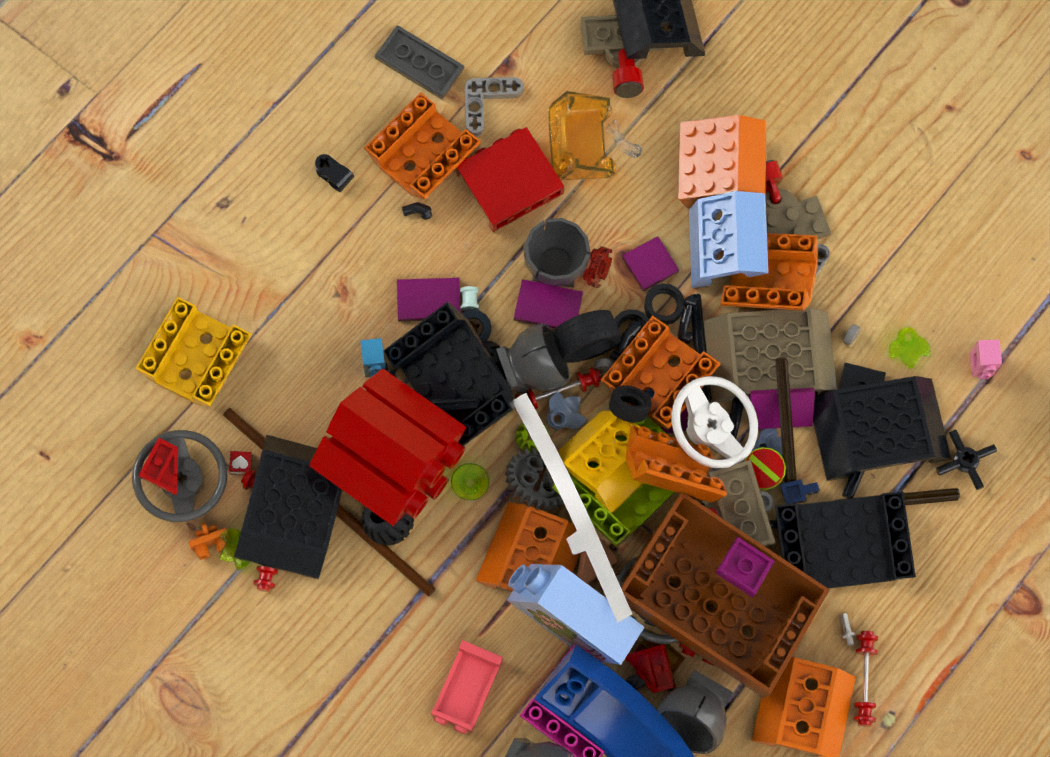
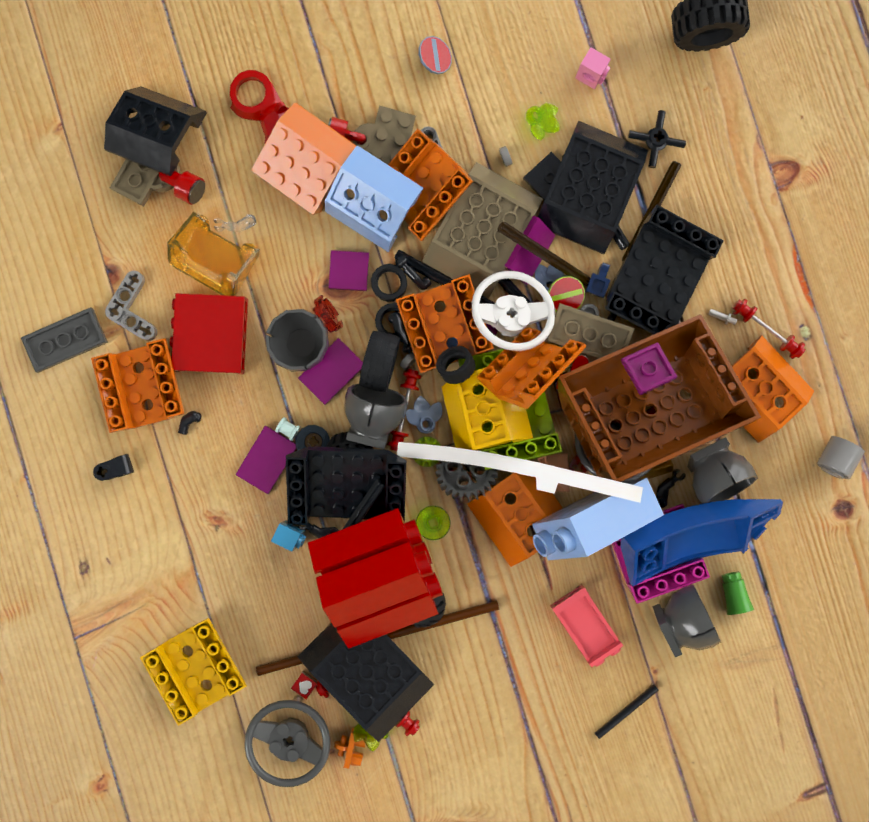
camera: 55 degrees left, 15 degrees up
(162, 466) = (273, 756): red wing -> none
(653, 667) = (667, 480): red wing -> none
(744, 104) = (267, 111): none -> red animal
(896, 215) = (435, 55): none -> piece

